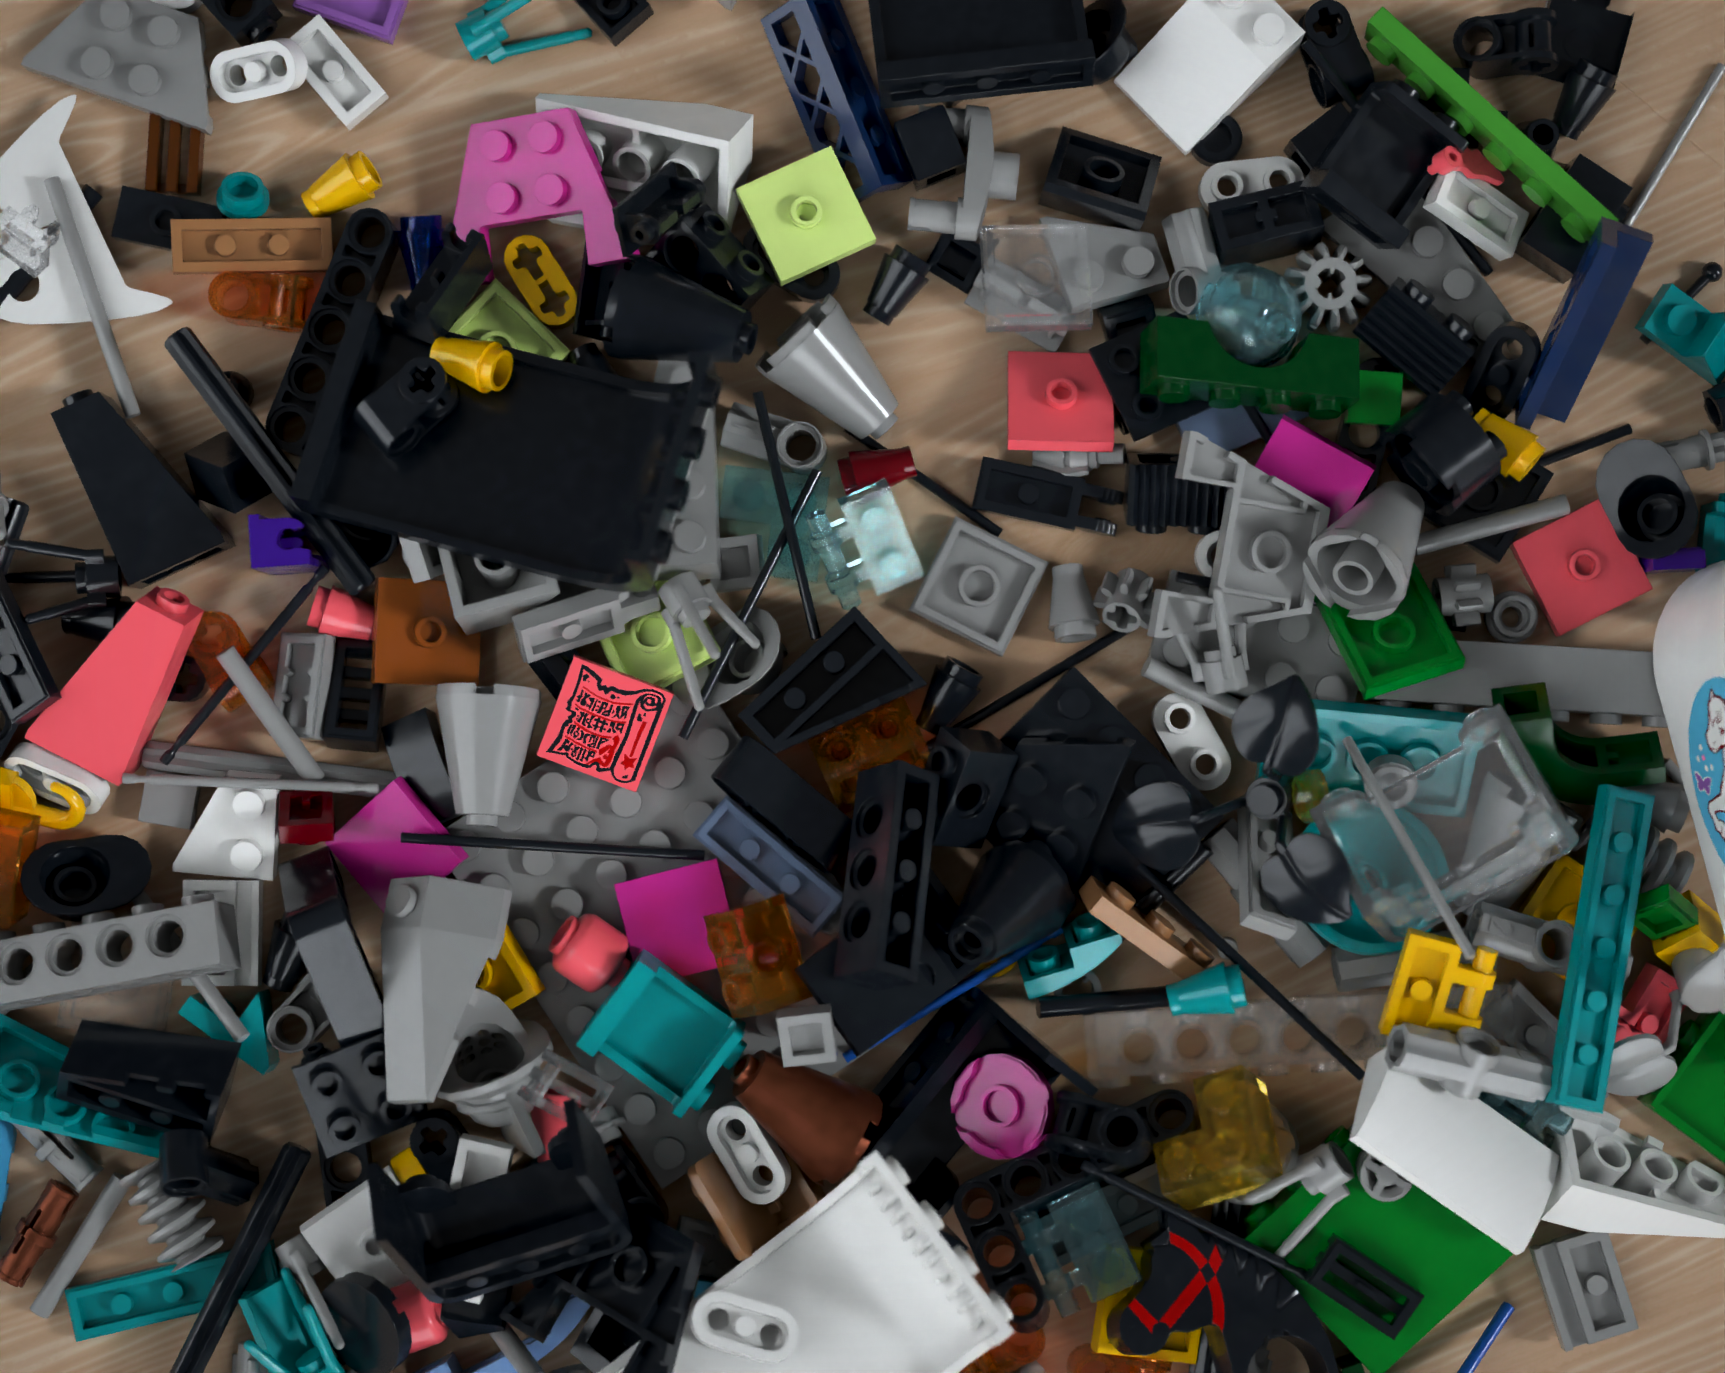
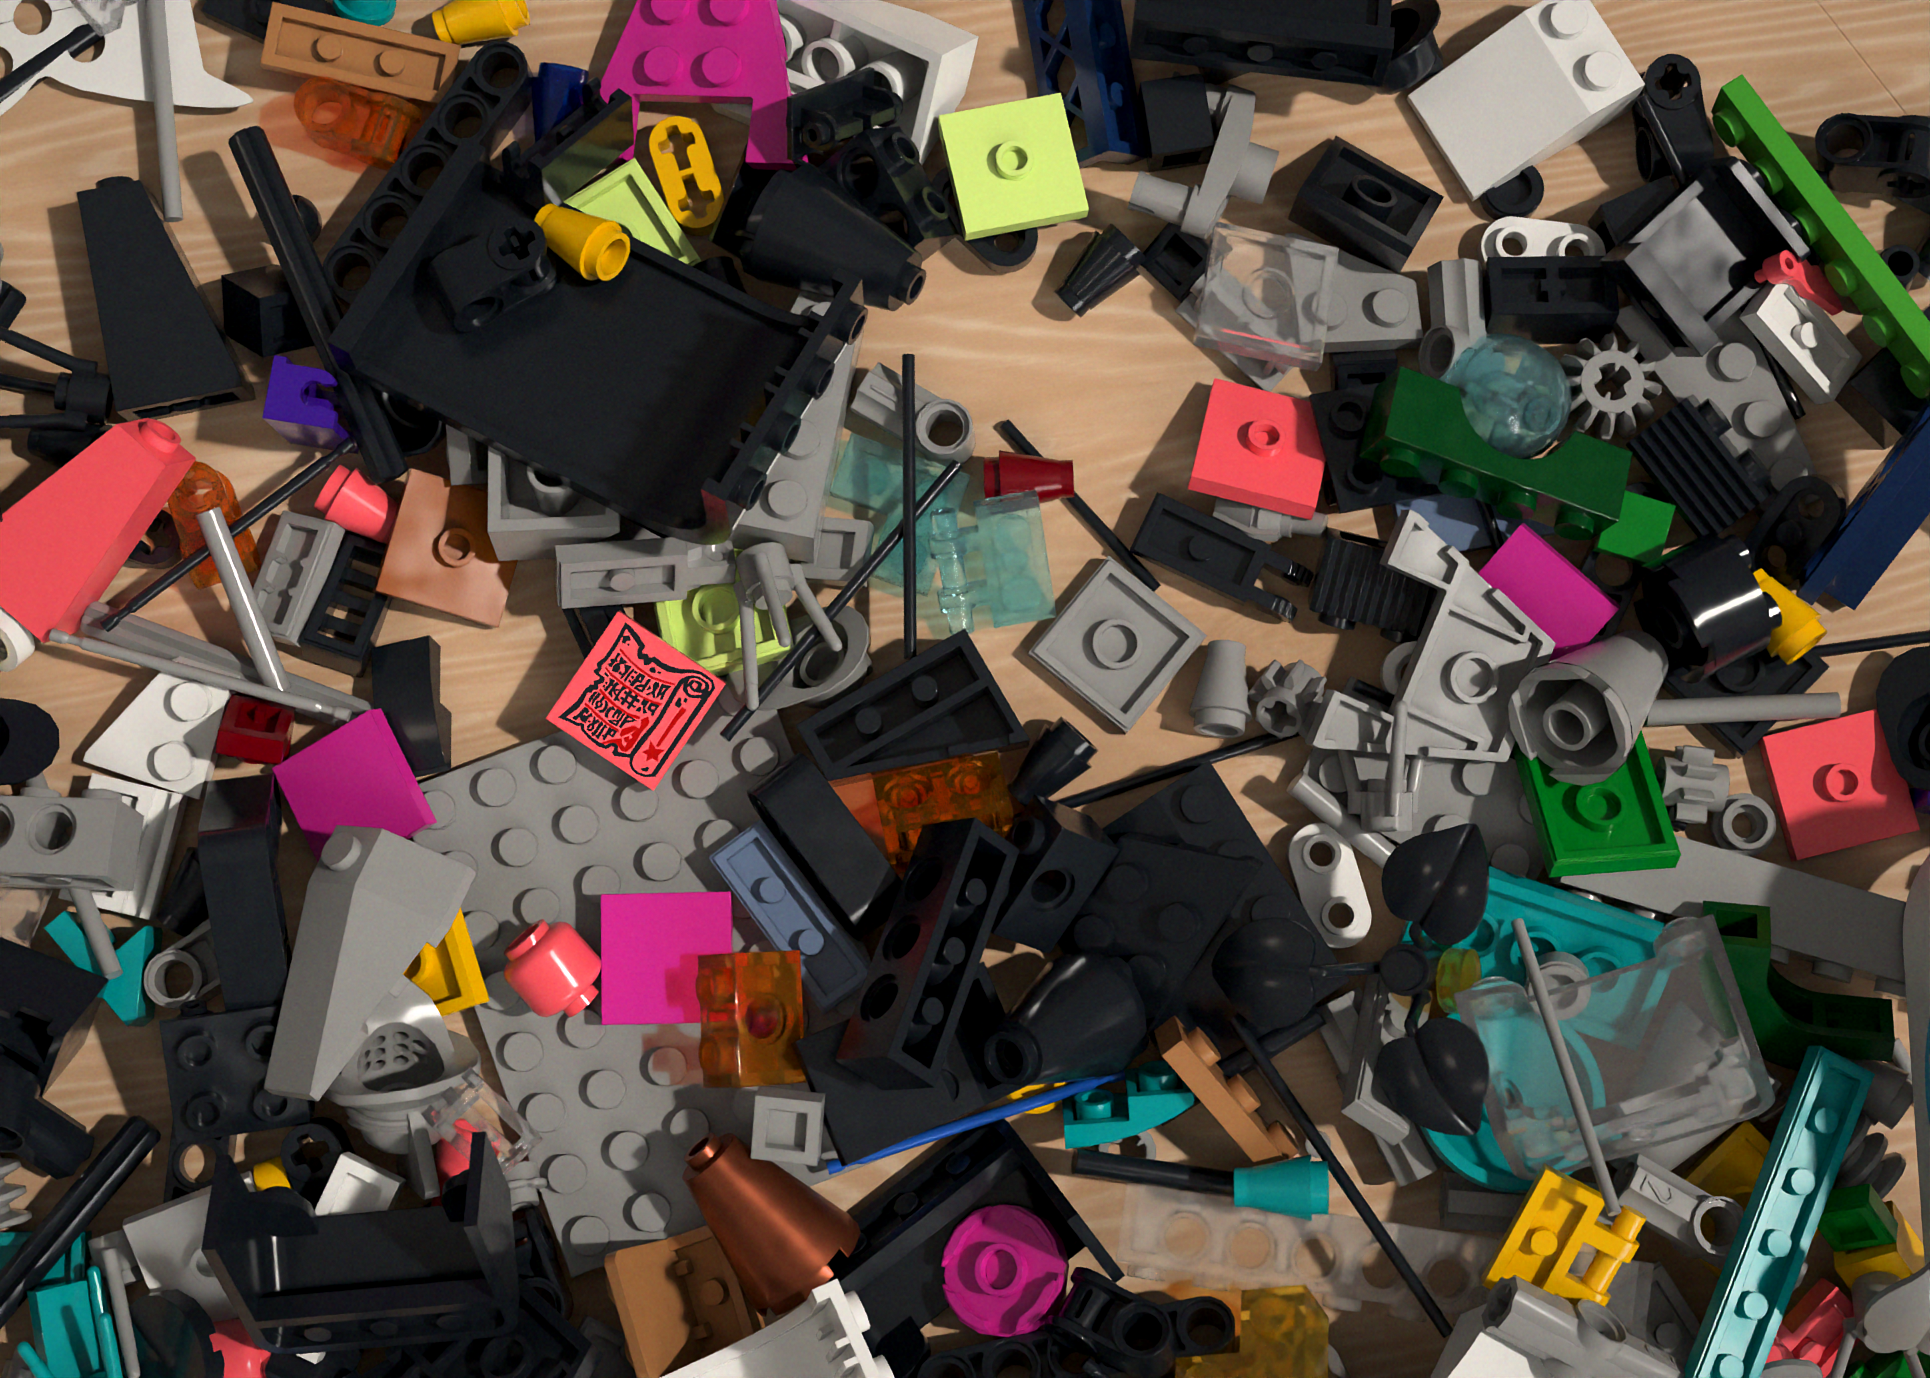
camera: 10 degrees right, 5 degrees down
(169, 804) = (101, 681): light grey tile -> none
(486, 745) = (489, 693): light grey cone -> none
(552, 846) = (538, 832): black axle -> none
(665, 1033) = (619, 1086): teal panel -> none
(745, 1153) = (681, 1256): white plate -> none
(832, 371) = (1002, 353): light grey cone -> none

